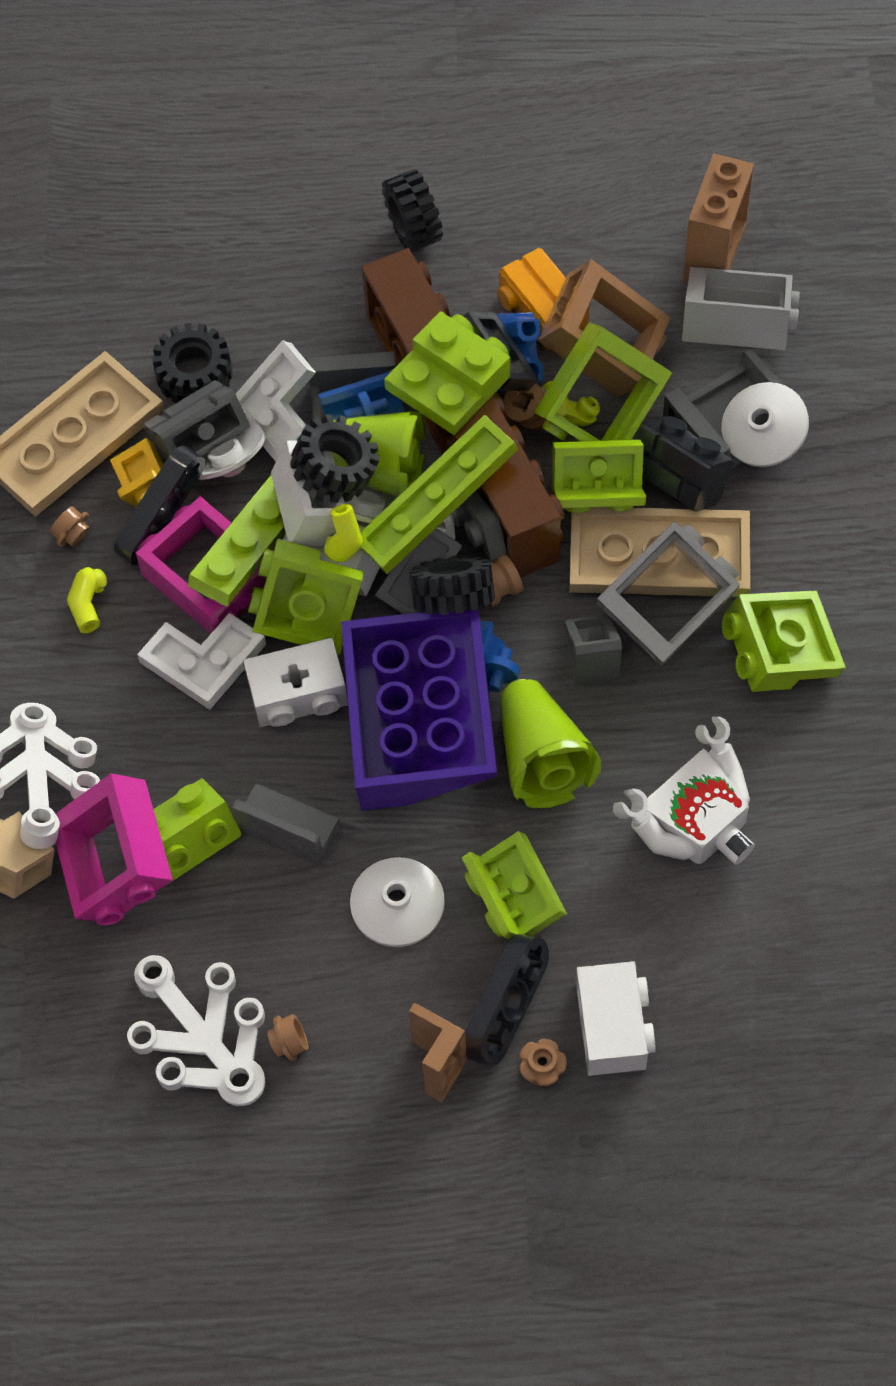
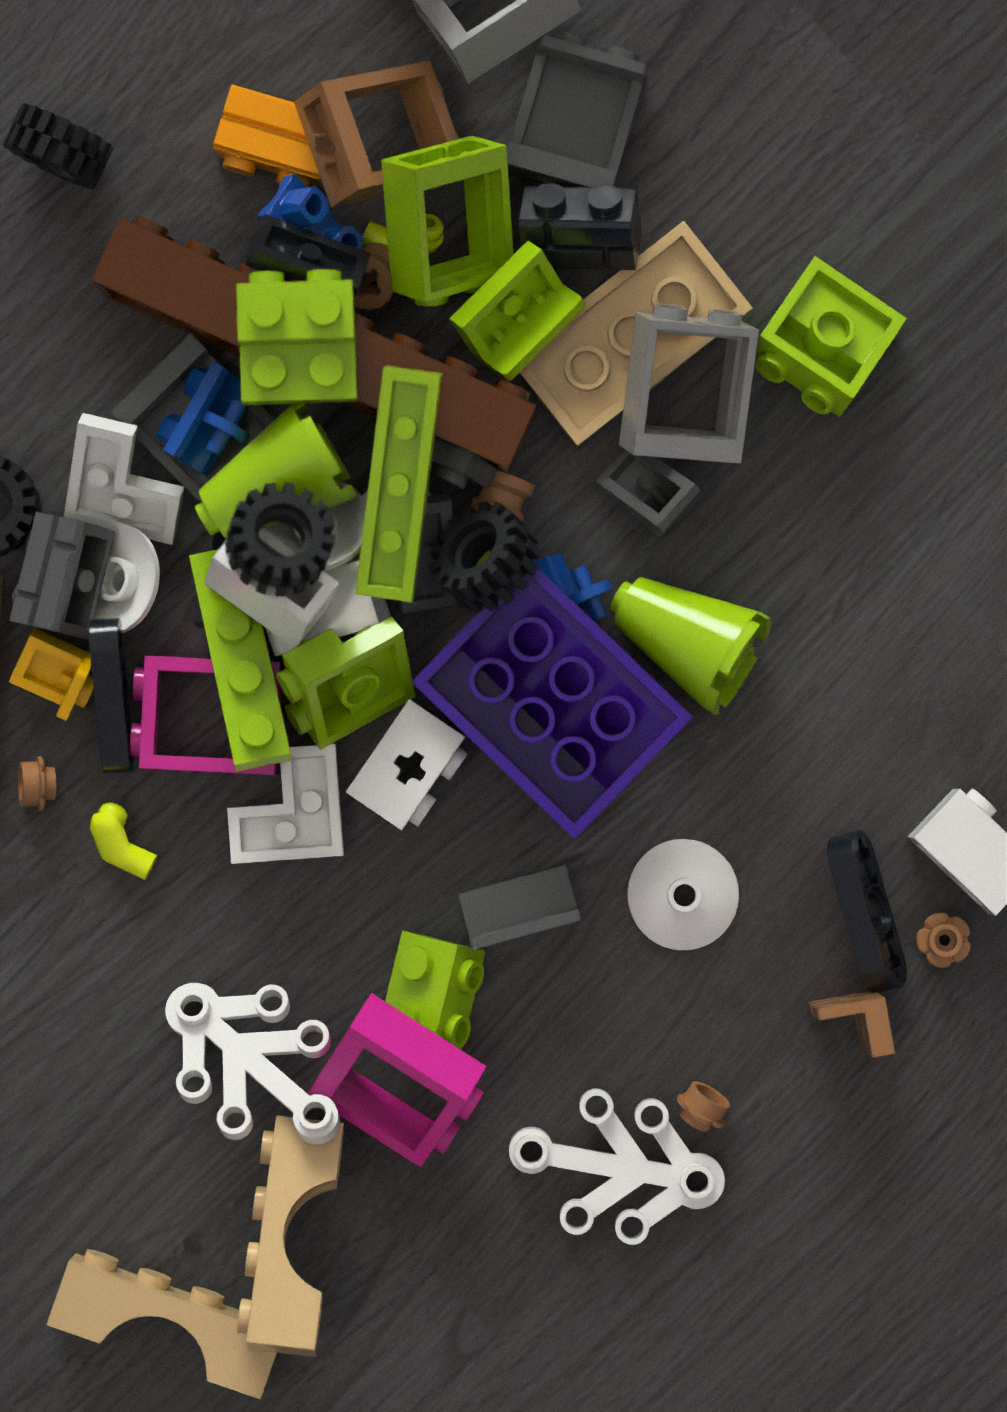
camera: 50 degrees left, 25 degrees up
(347, 537) = (352, 602): neon yellow arm -> none
(513, 888) = (785, 801): lime bracket -> none
(697, 806) = (887, 582): white torso -> none
(772, 441) = (632, 83): white dish -> none

